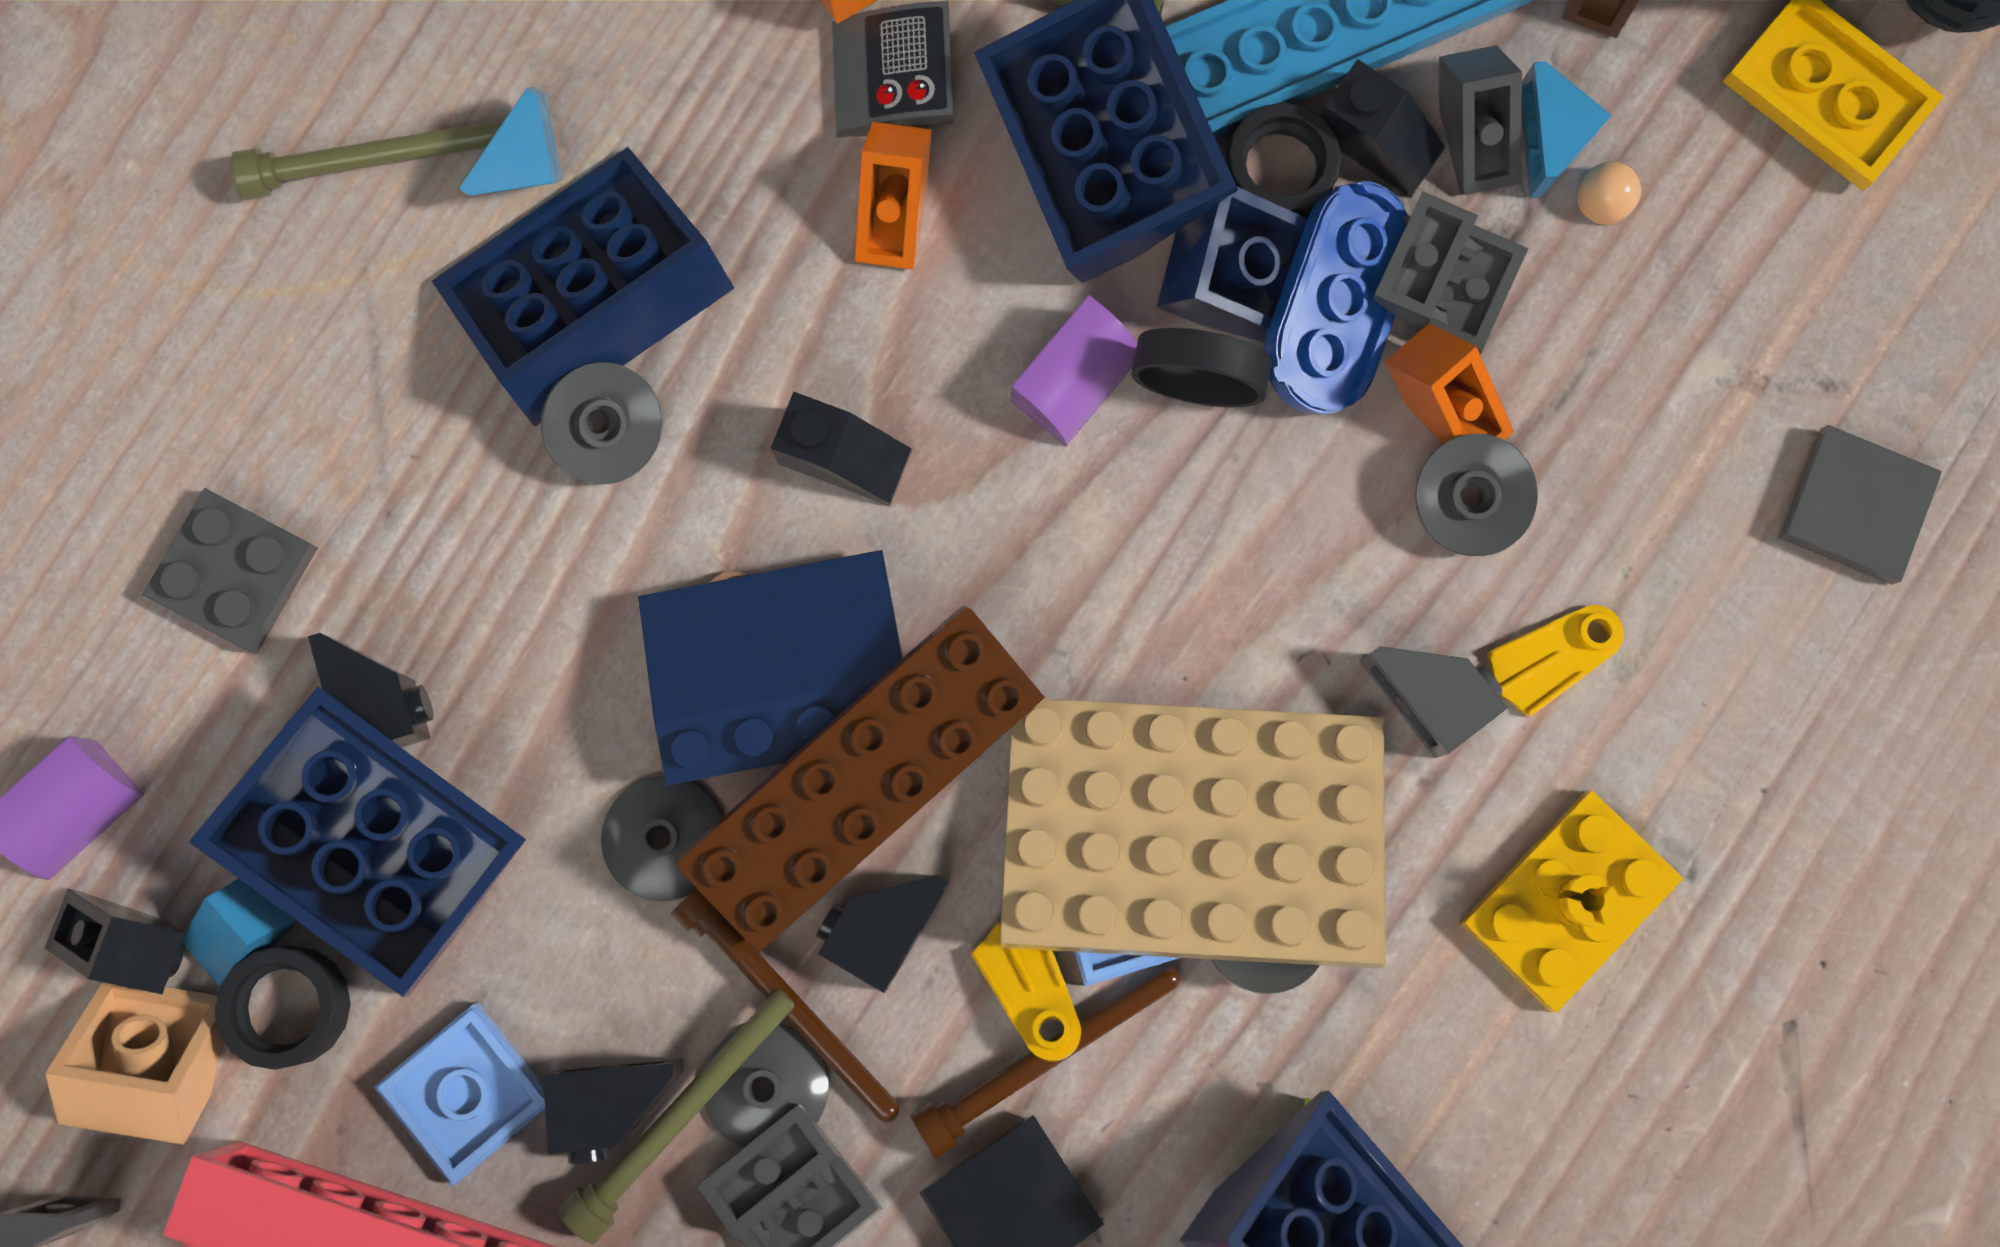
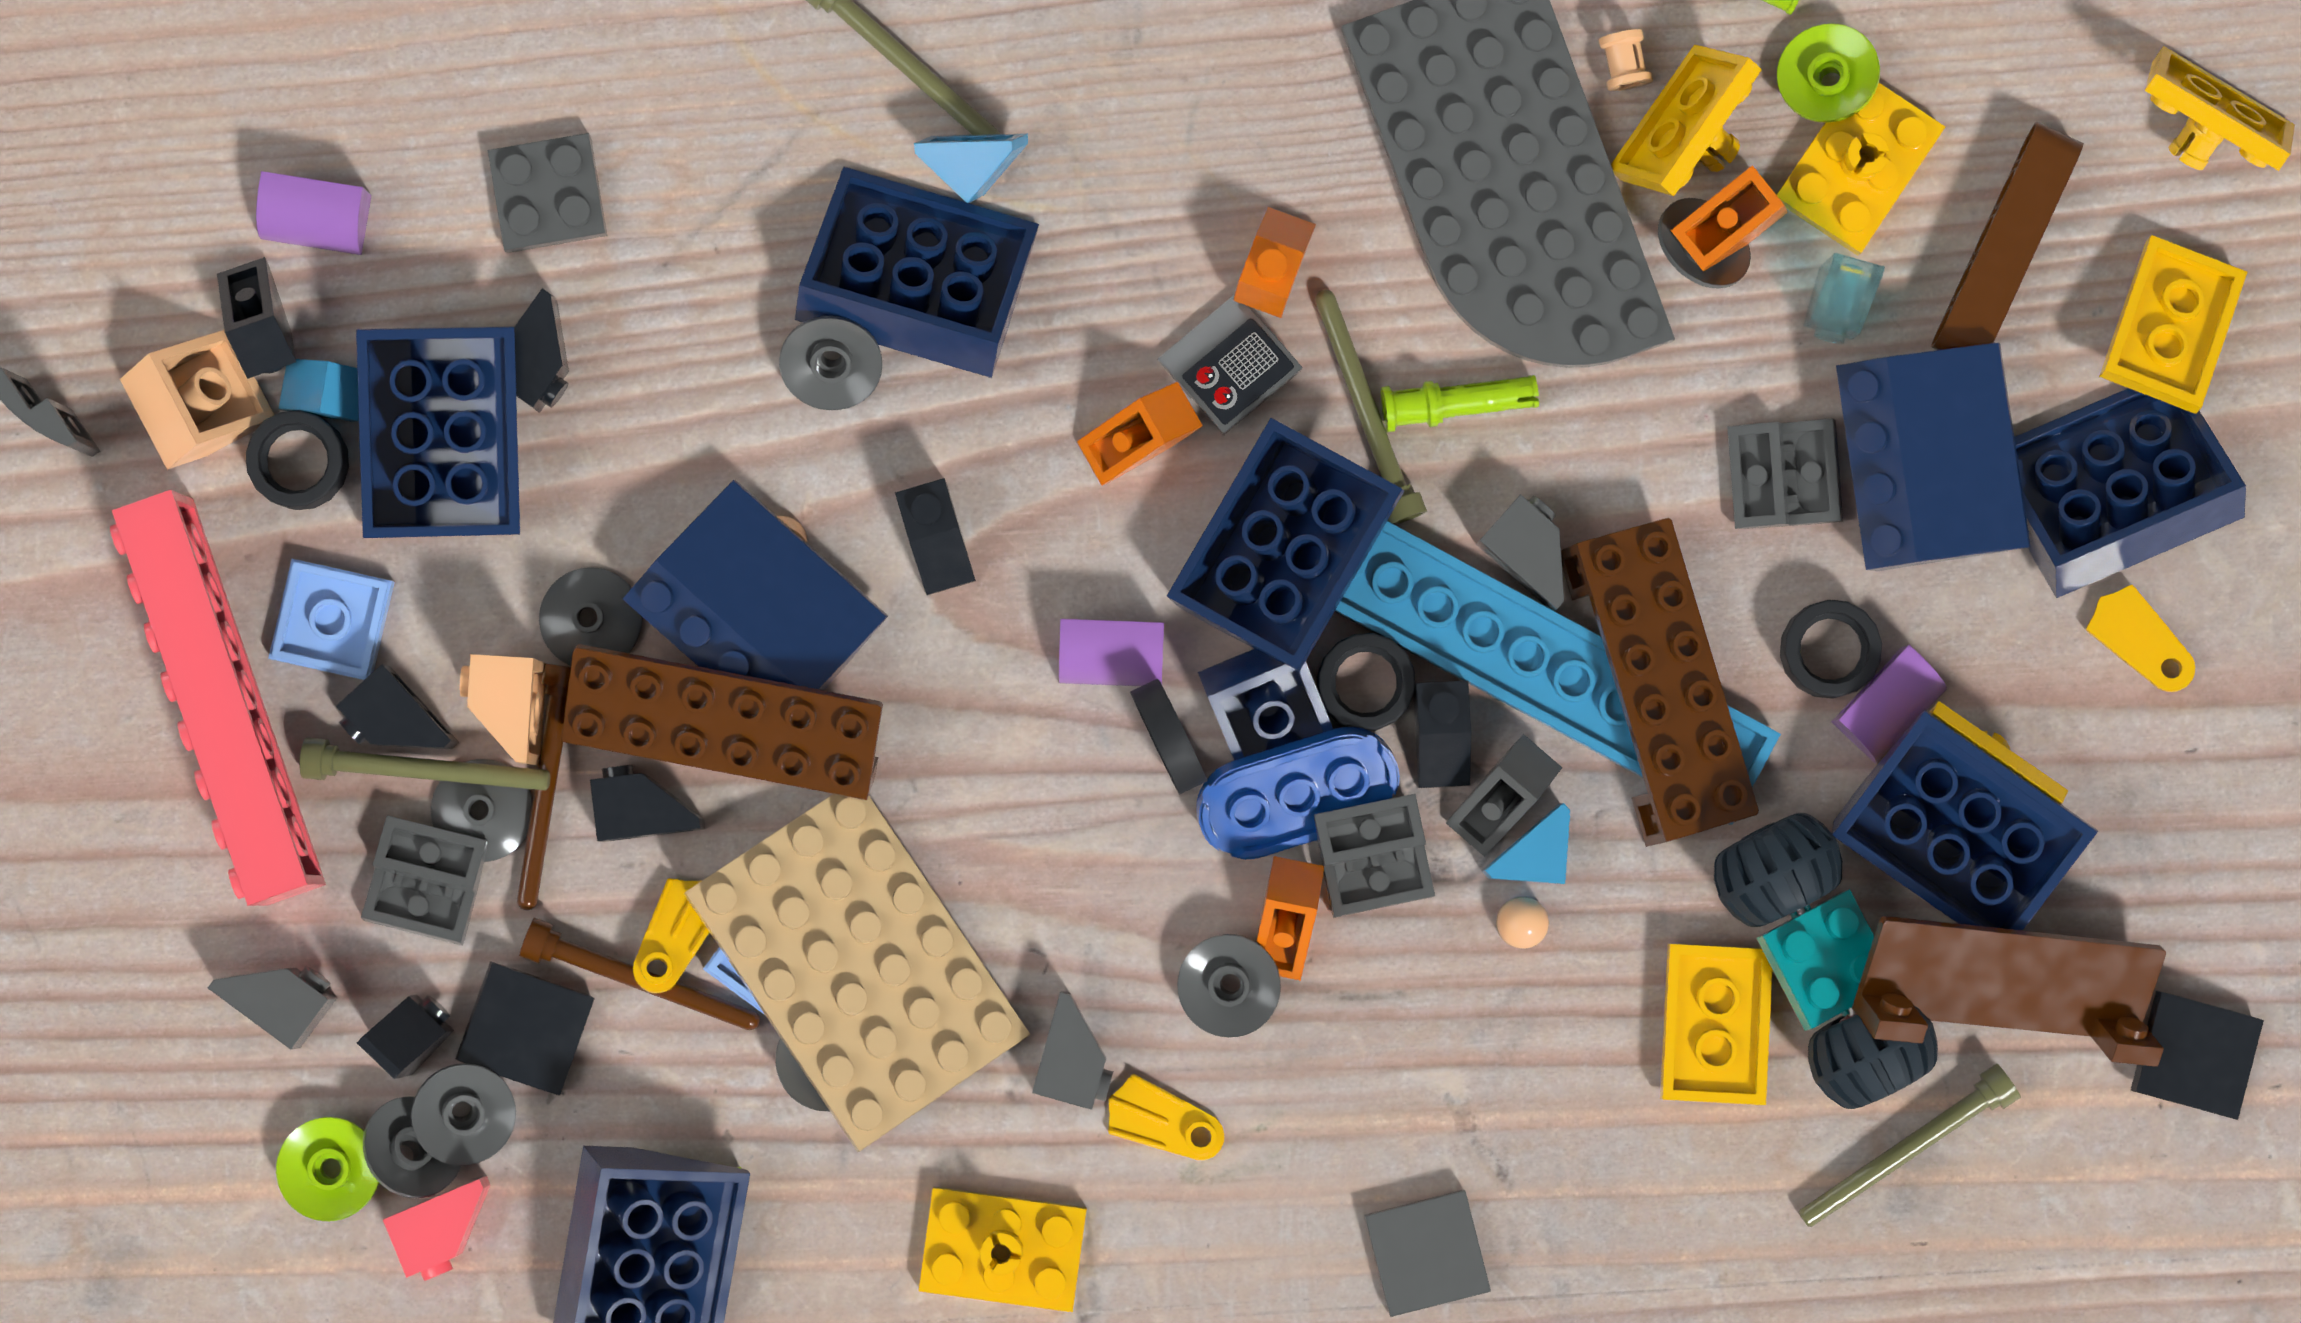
camera: 55 degrees right, 5 degrees up
(675, 975) = (508, 702): none -> light nougat slope

